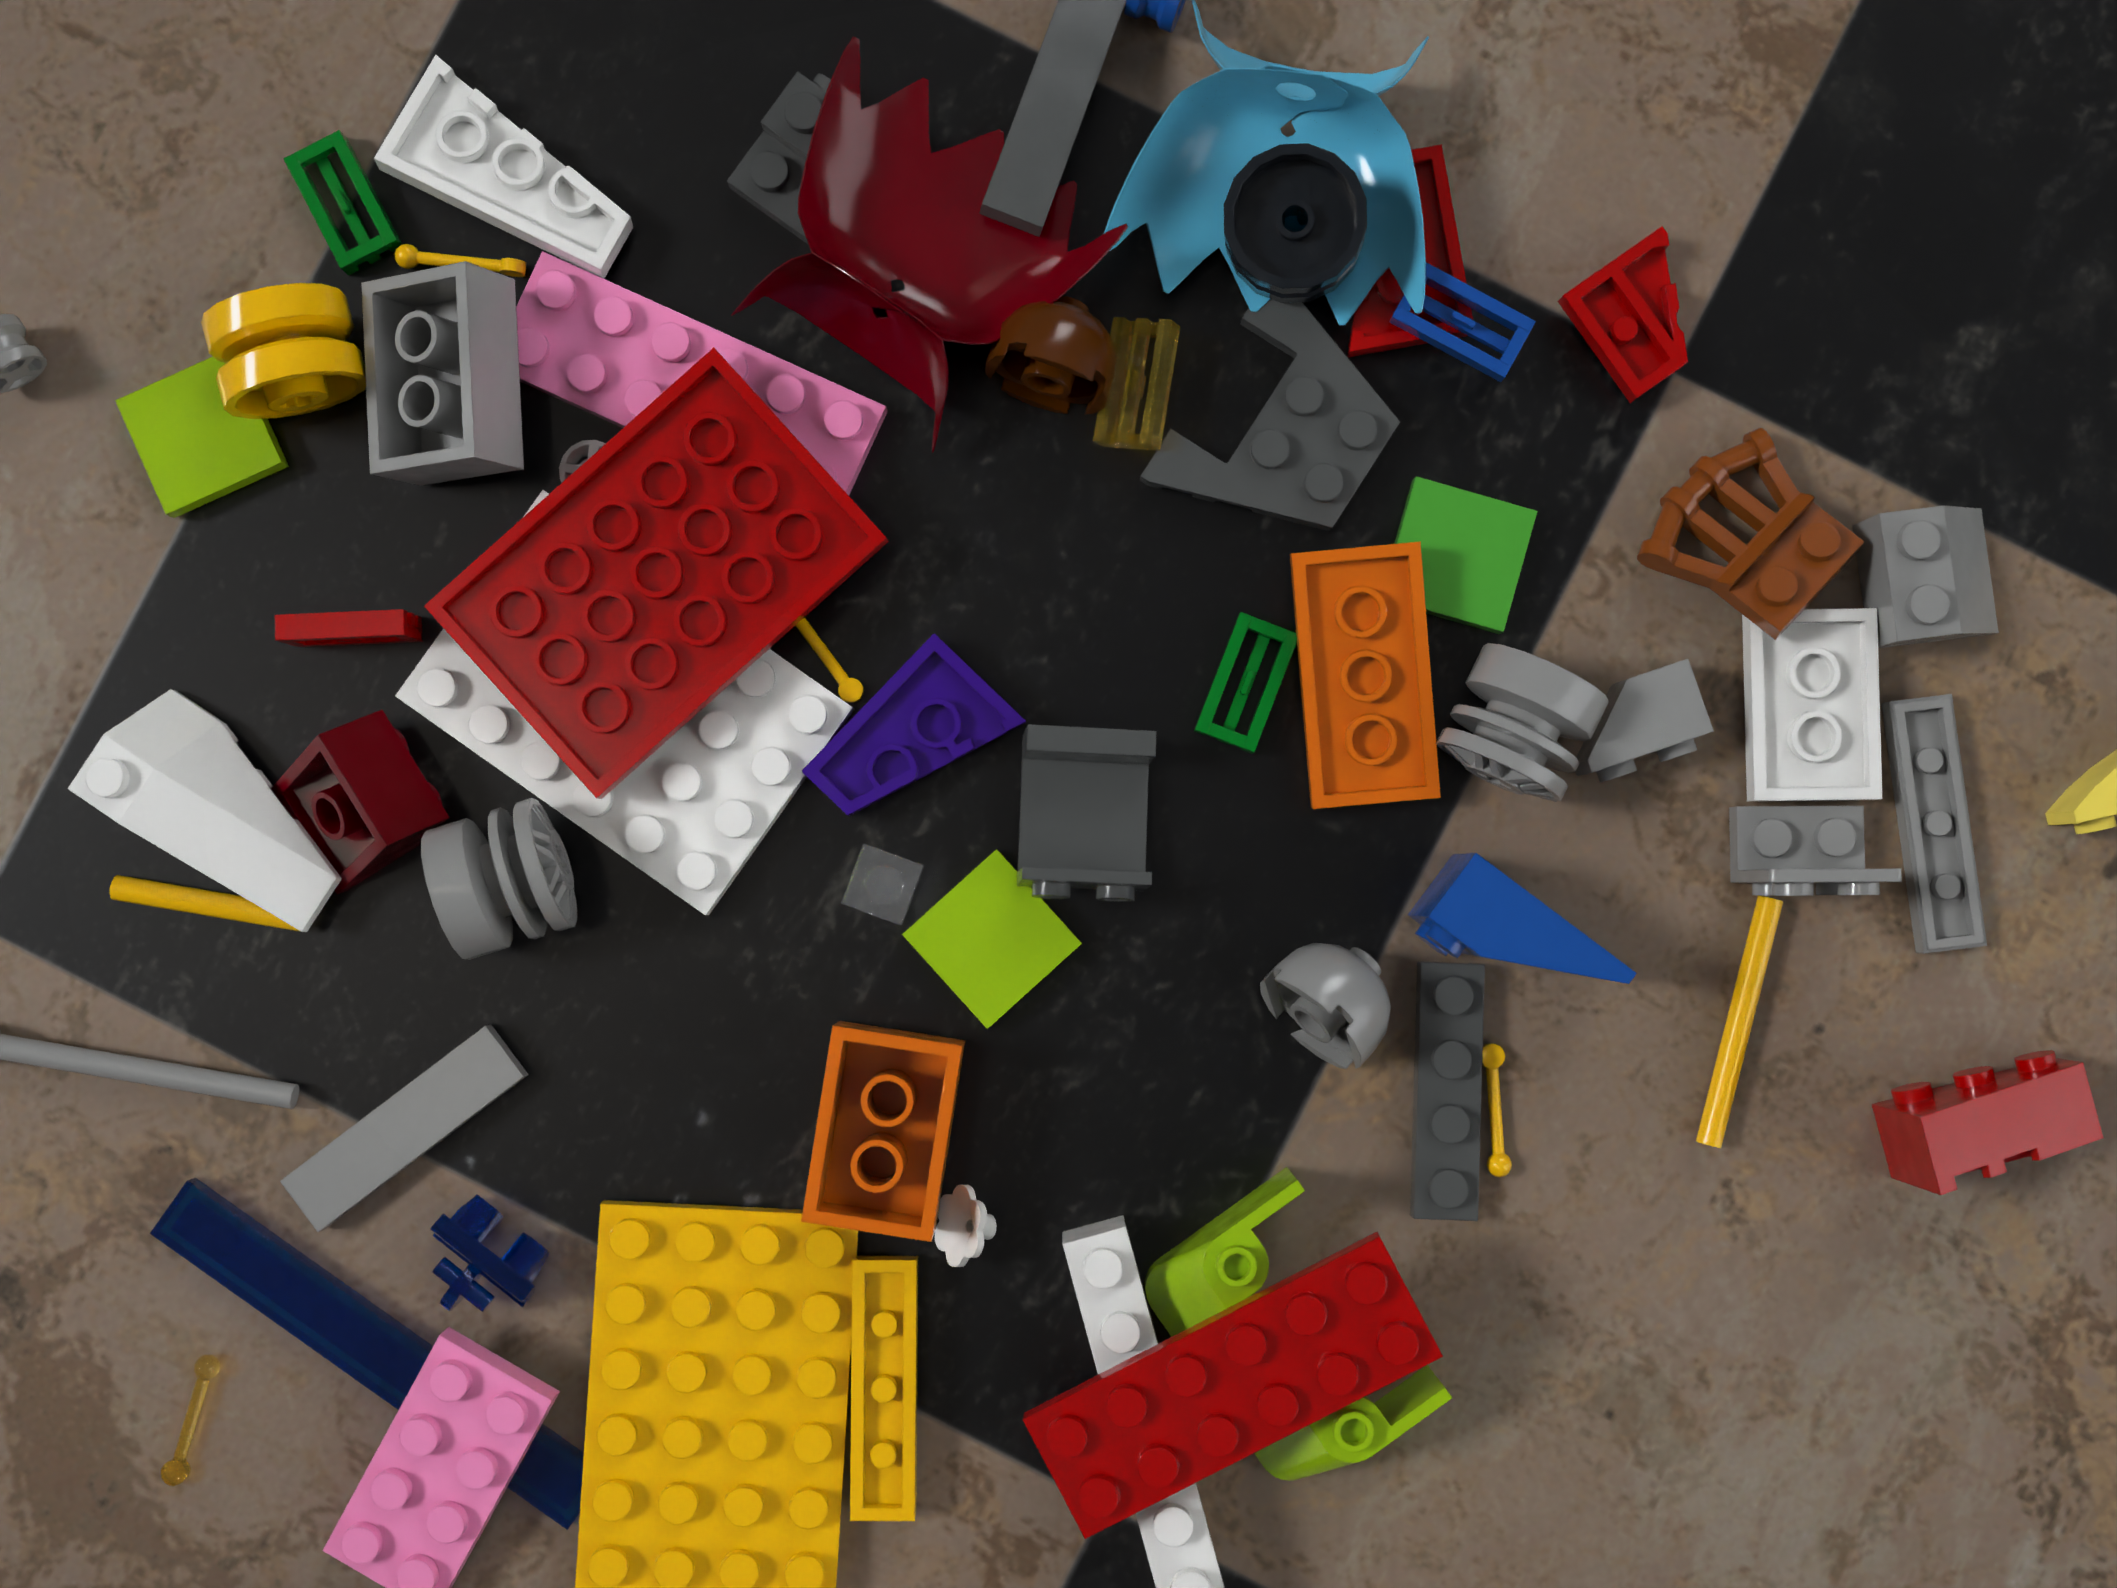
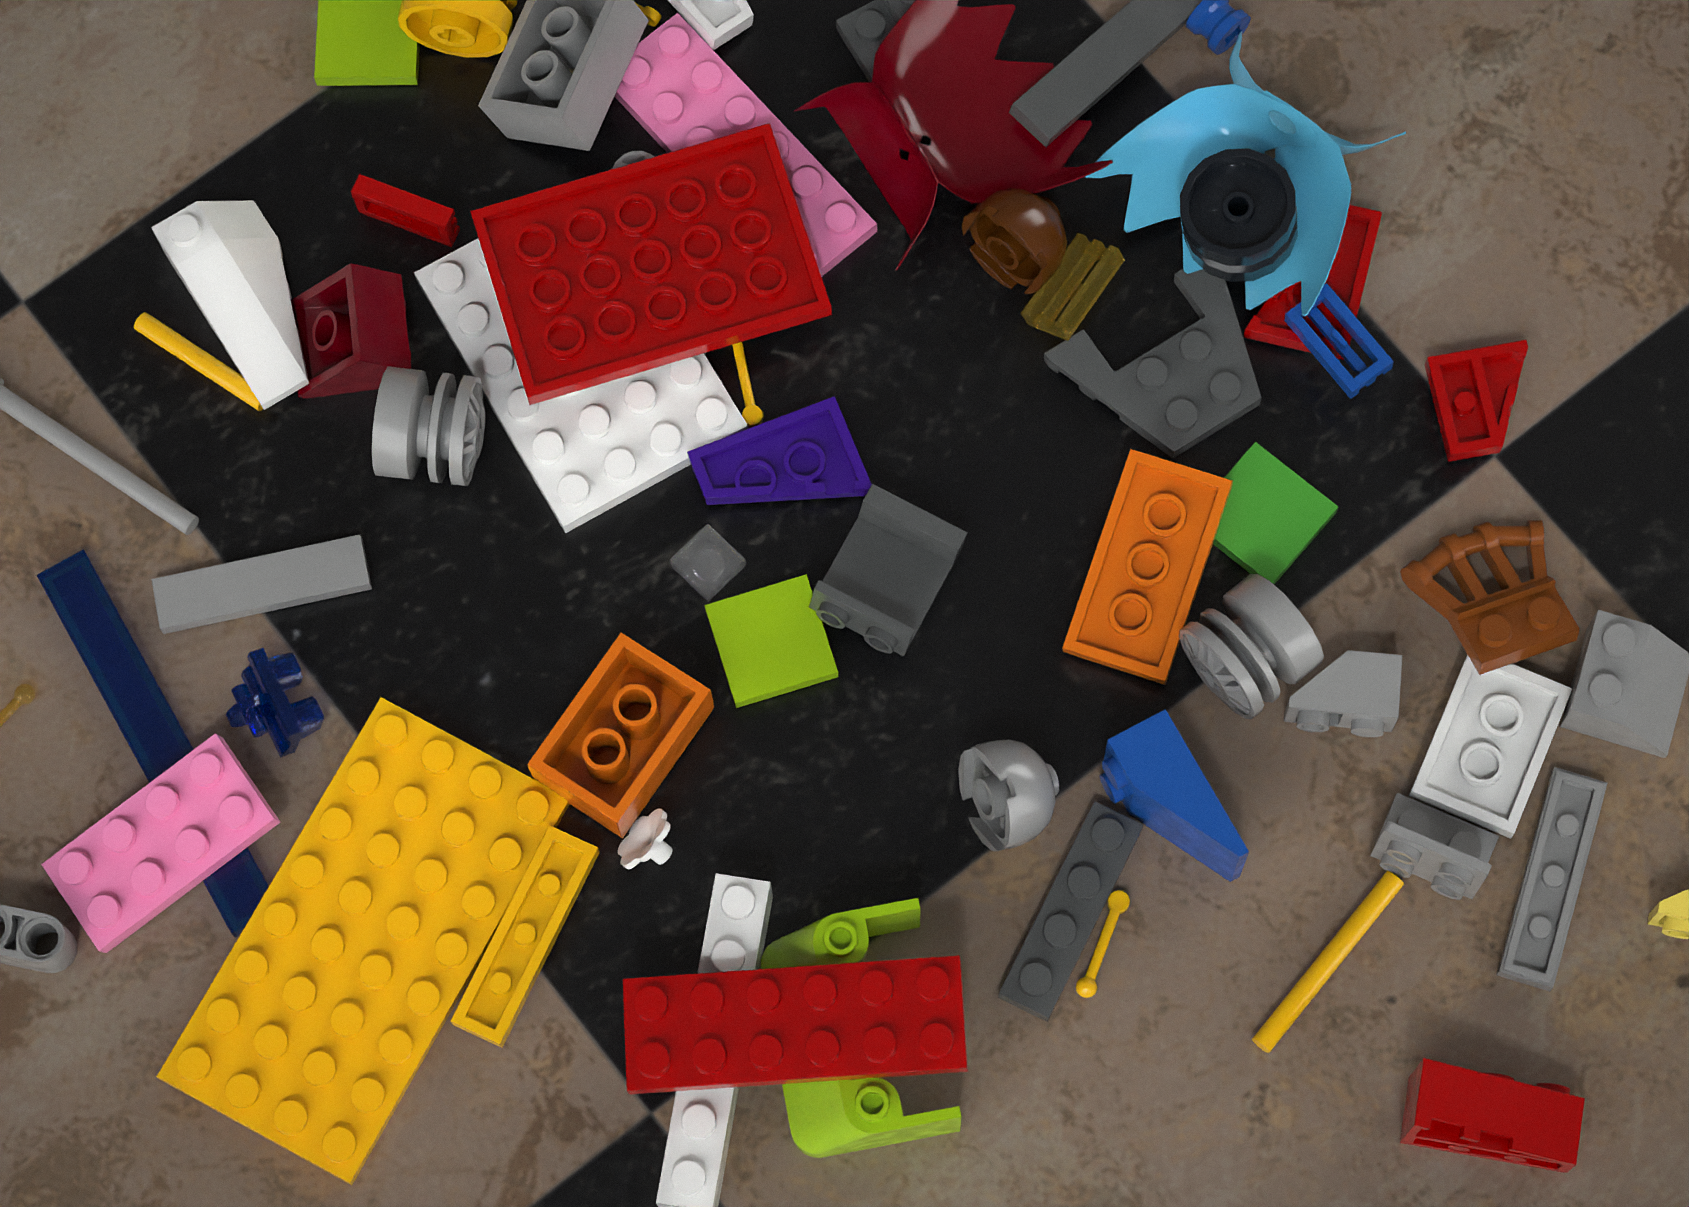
camera: 30 degrees right, 15 degrees down
(1226, 733) = (1024, 569): green tile -> none

